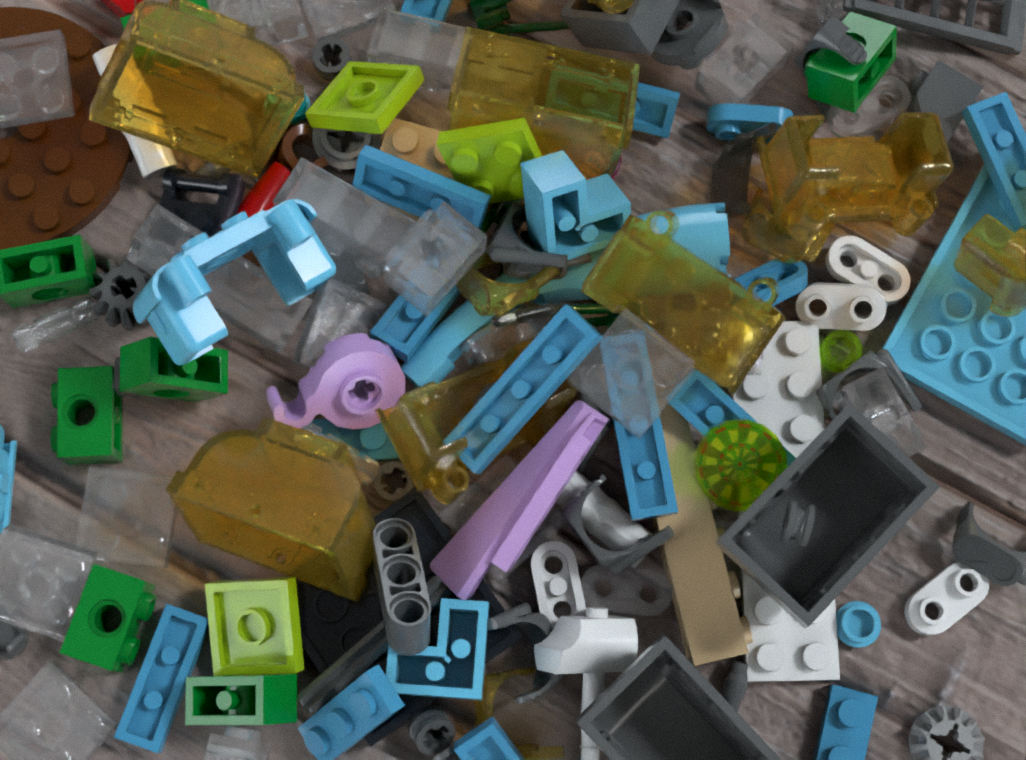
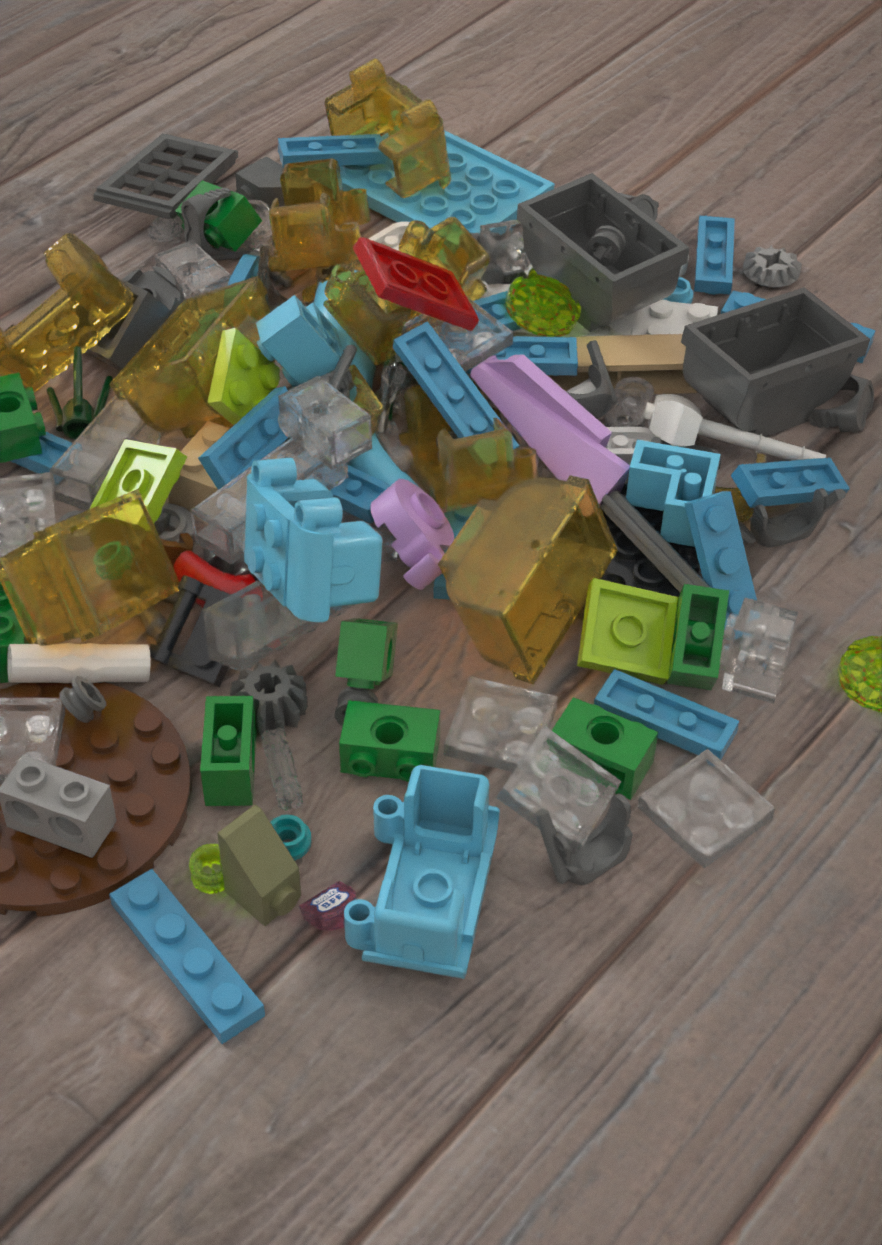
camera: 80 degrees left, 30 degrees down
(66, 118) = (82, 699): none -> dark grey bush
(401, 586) = (633, 486): dark grey beam -> none
(645, 308) = (415, 284): none -> red tile
(947, 667) = (714, 255): none -> dark azure plate

